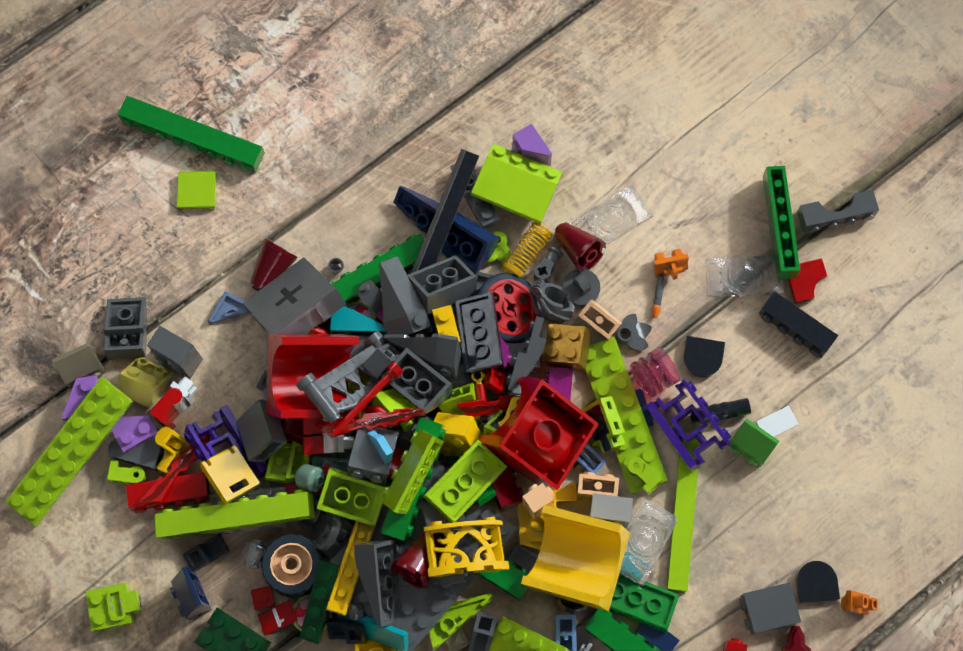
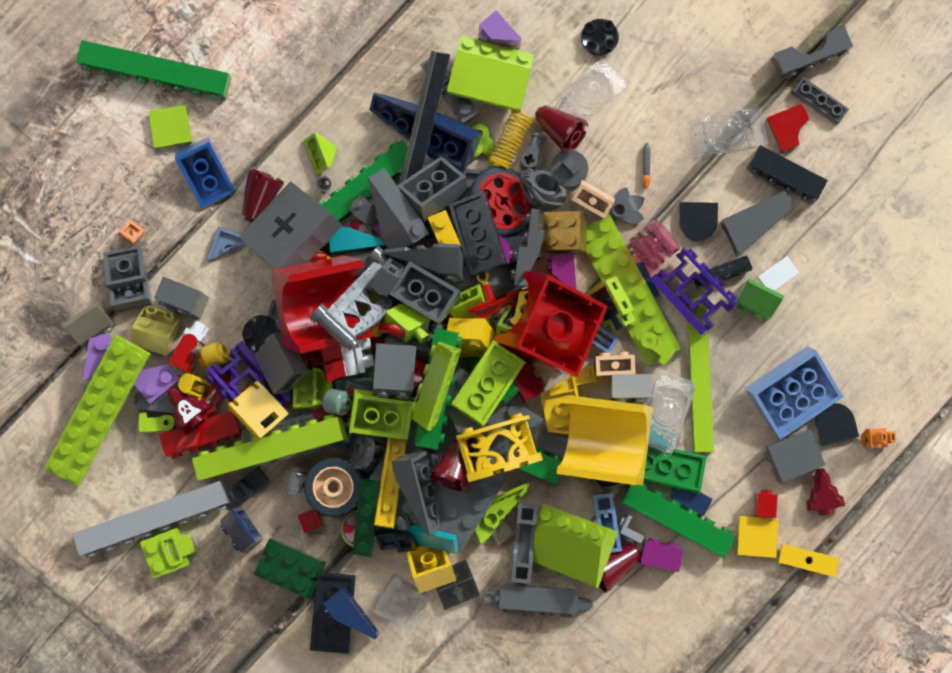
camera: 10 degrees left, 10 degrees up
(101, 569) = (151, 518): none -> light grey brick
(138, 284) = (131, 232): none -> orange tile
(159, 463) = (187, 409): none -> dark red rock
(197, 412) = (214, 353): none -> yellow head
(221, 237) = (204, 172): none -> blue slope
(244, 397) = (258, 330): none -> black dish
(277, 617) = (327, 537): red sticker -> none
(338, 235) = (320, 152): none -> lime slope
(374, 420) = (386, 340): red sword -> none
(381, 446) = (402, 363): medium azure tile -> none
(392, 372) = (400, 288): red piece -> none
(495, 381) = (500, 278): red plate -> none
(536, 498) = (559, 388): light nougat brick -> none
(630, 166) = (600, 37): none -> black dish
(670, 265) = (655, 133): orange hips -> none
(760, 365) = (751, 223): none -> dark grey slope
(778, 543) = (794, 392): none -> medium blue slope
(781, 223) = (758, 73): green brick -> none
(848, 267) = (809, 94): none -> dark grey tile

